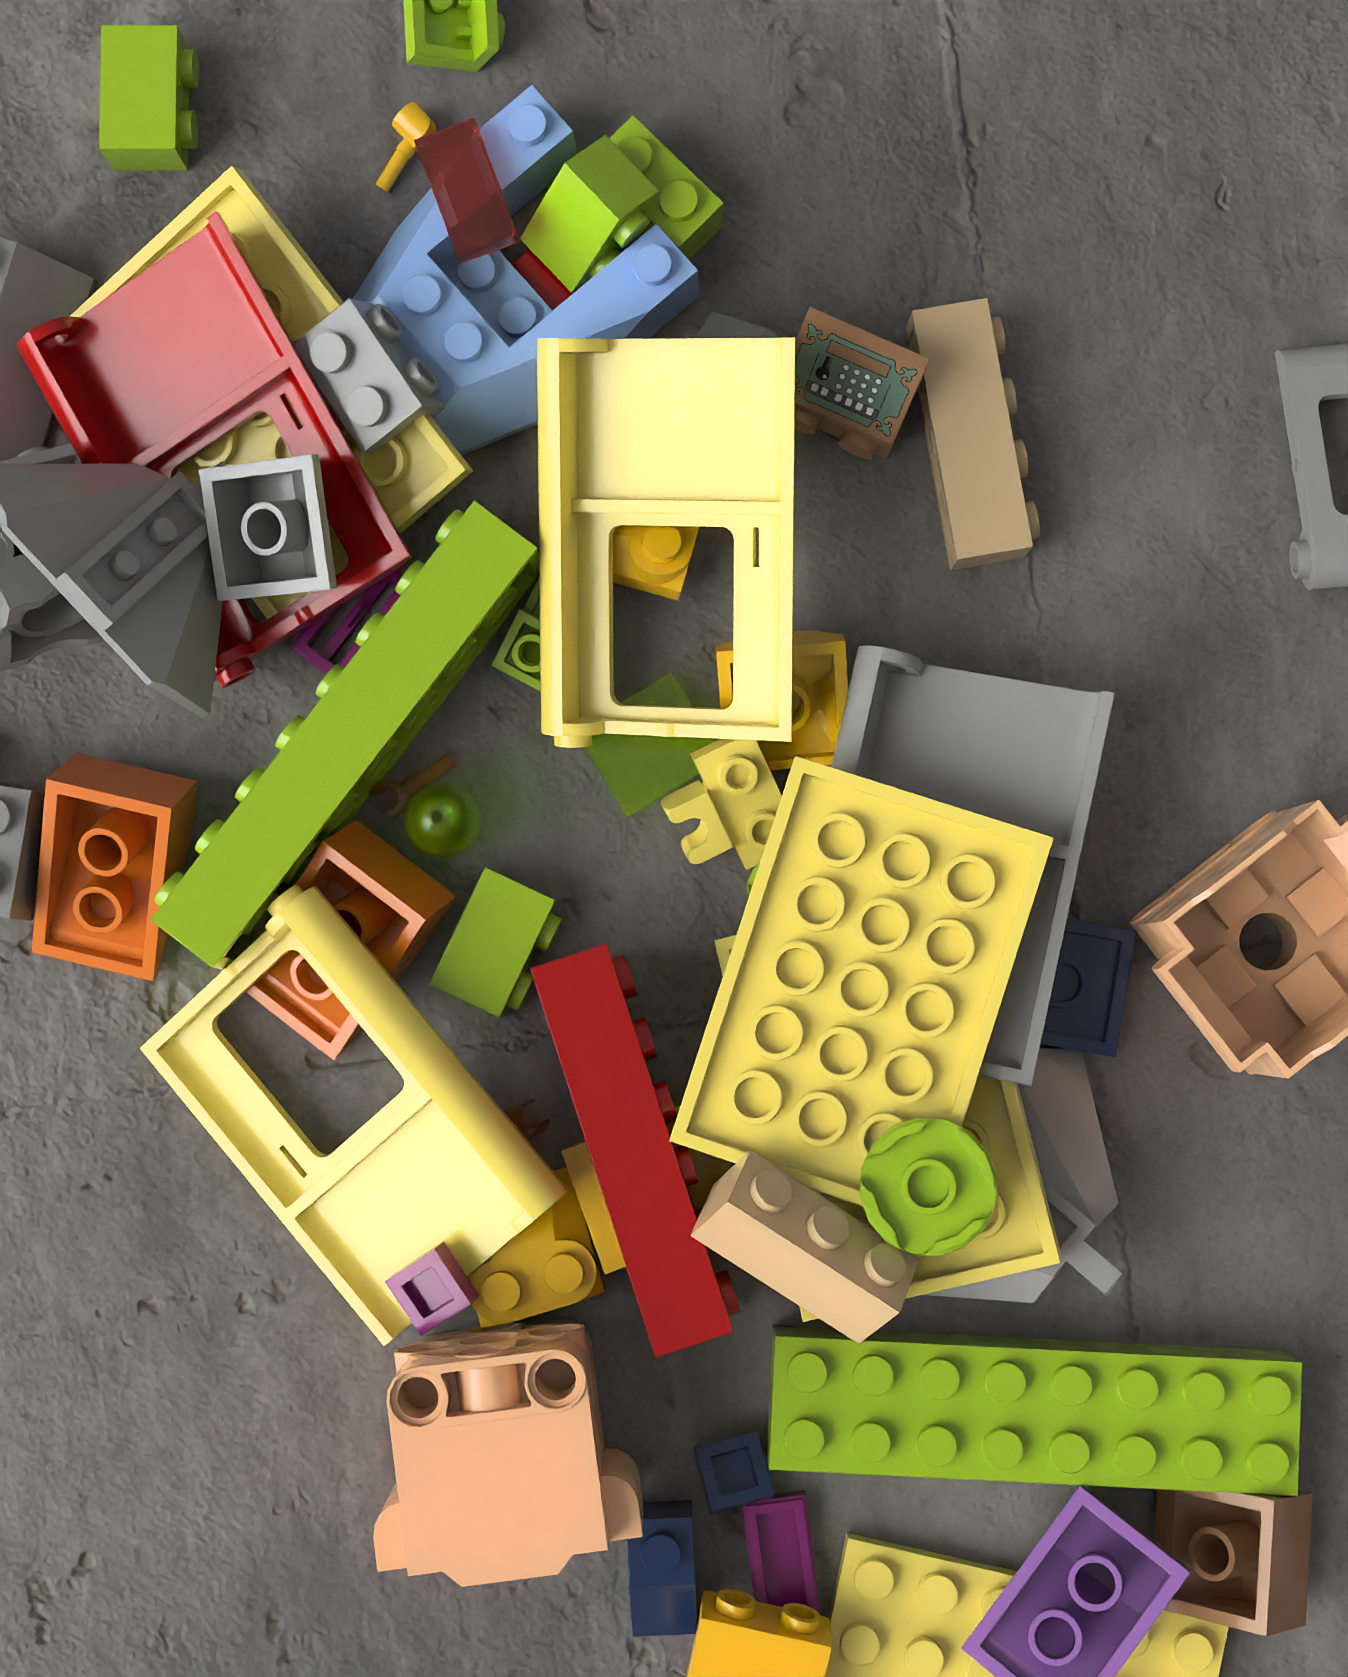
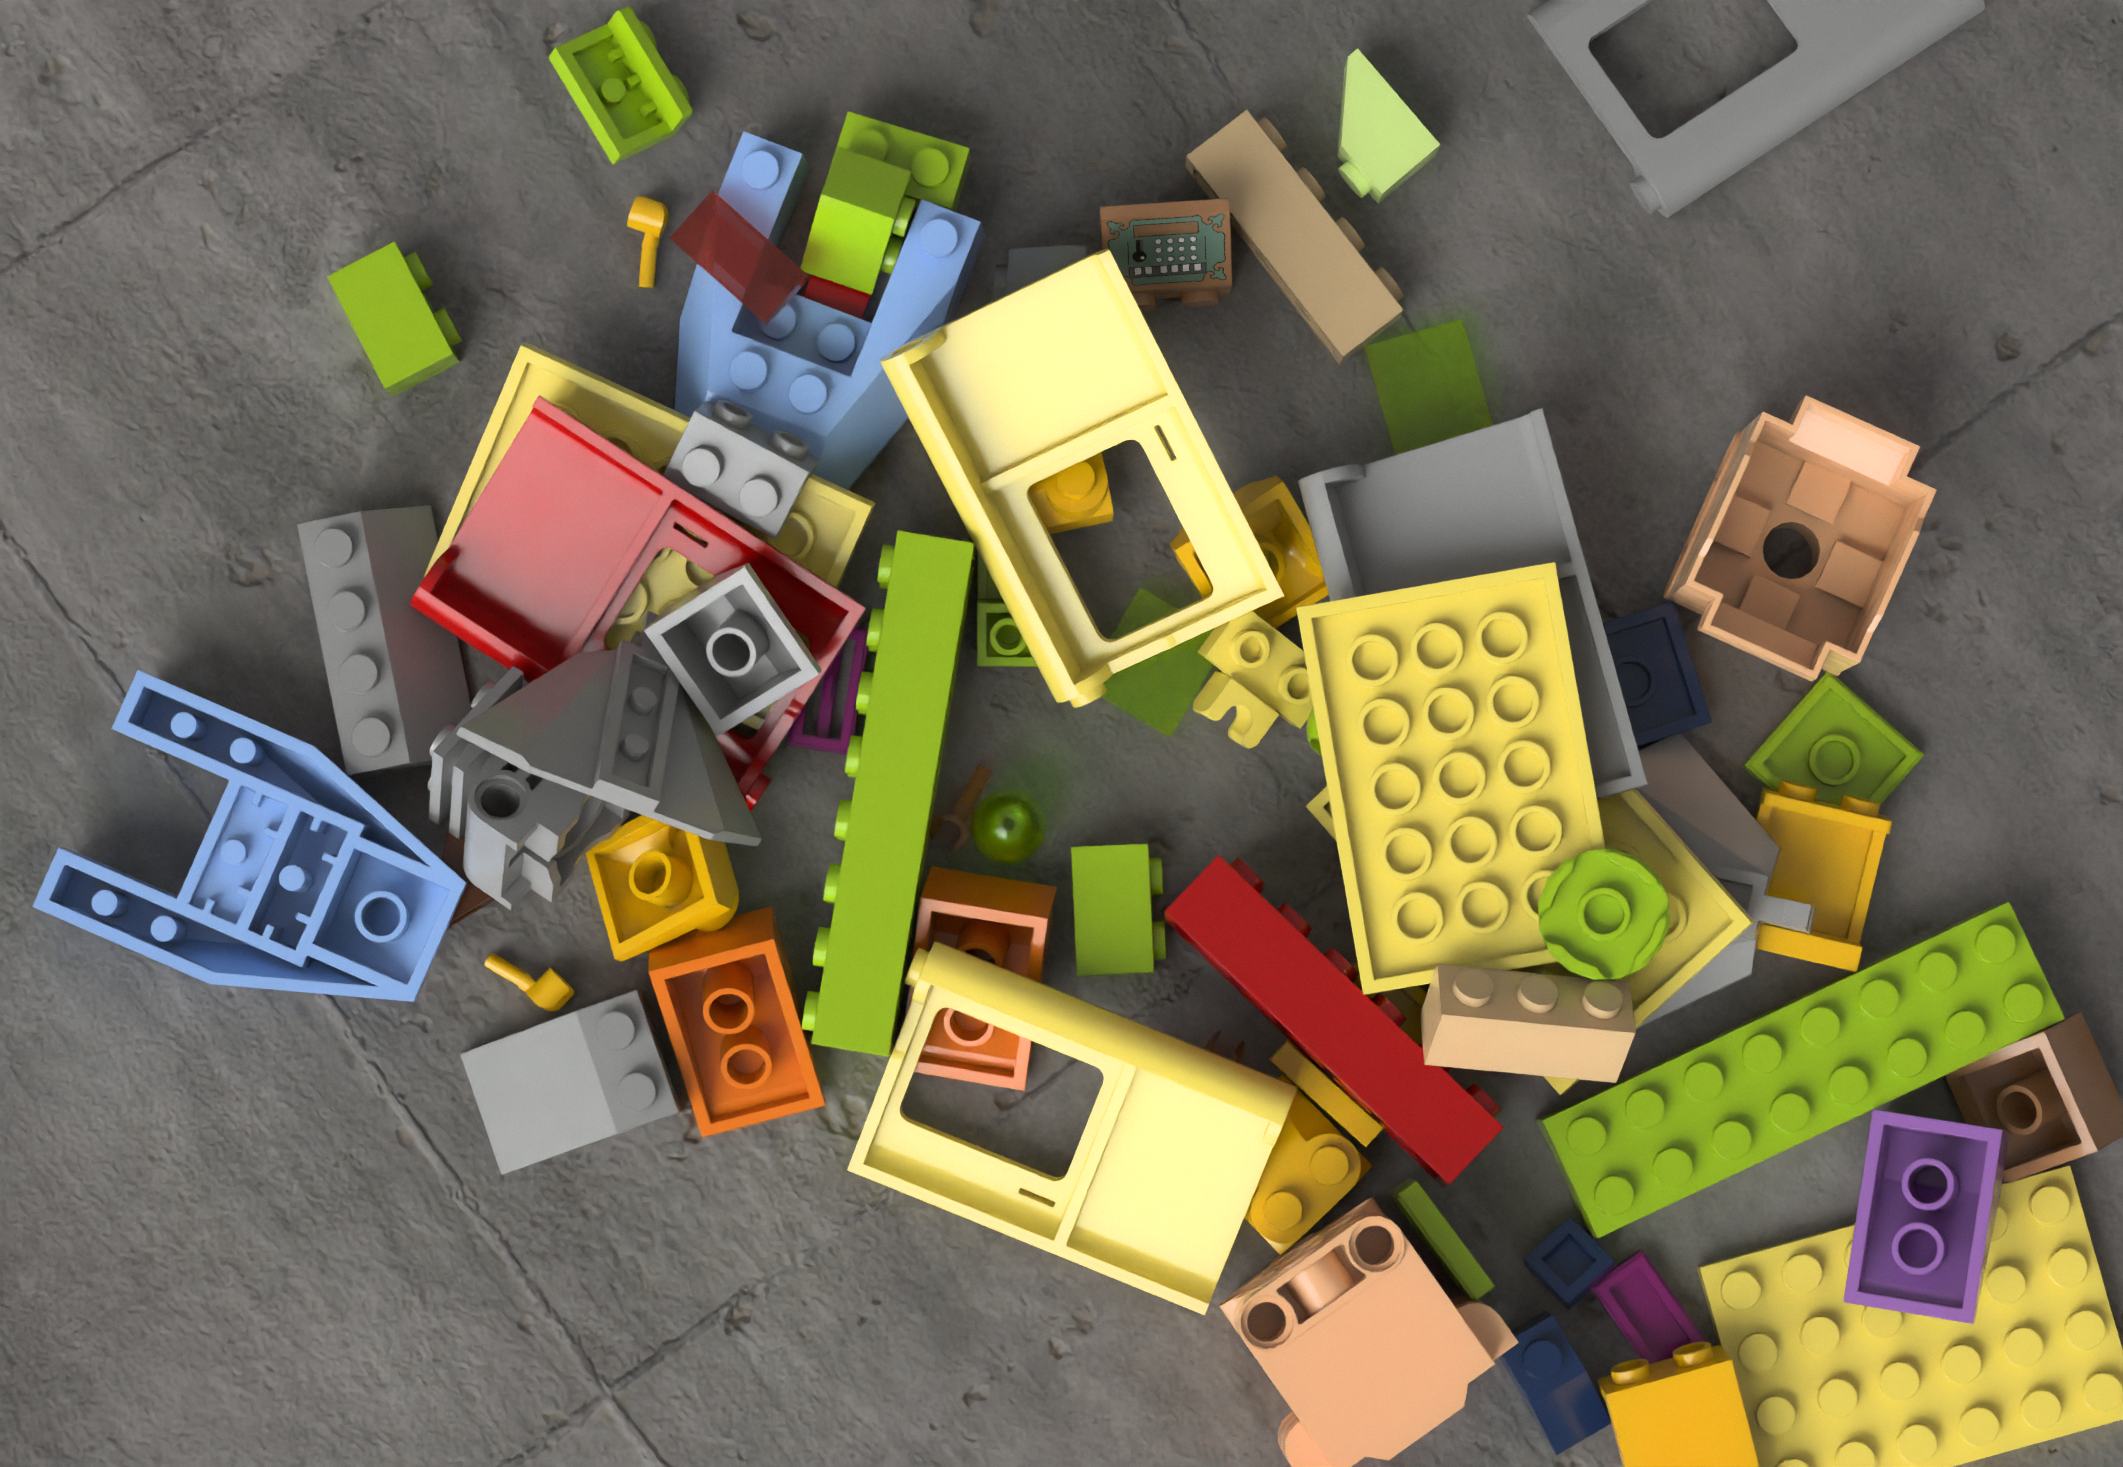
camera: 30 degrees left, 0 degrees up
(105, 714) = (660, 885): none -> yellow slope
(432, 1288) = (1222, 1238): plate -> none
(628, 1395) = (1441, 1239): none -> lime tile
(1018, 626) = (1428, 386): none -> clear neon green piece
(1093, 385) = (1378, 133): none -> yellowish green slope
(1150, 1237) = (1825, 862): none -> yellow panel
(1204, 1147) = (1834, 746): none -> lime tile

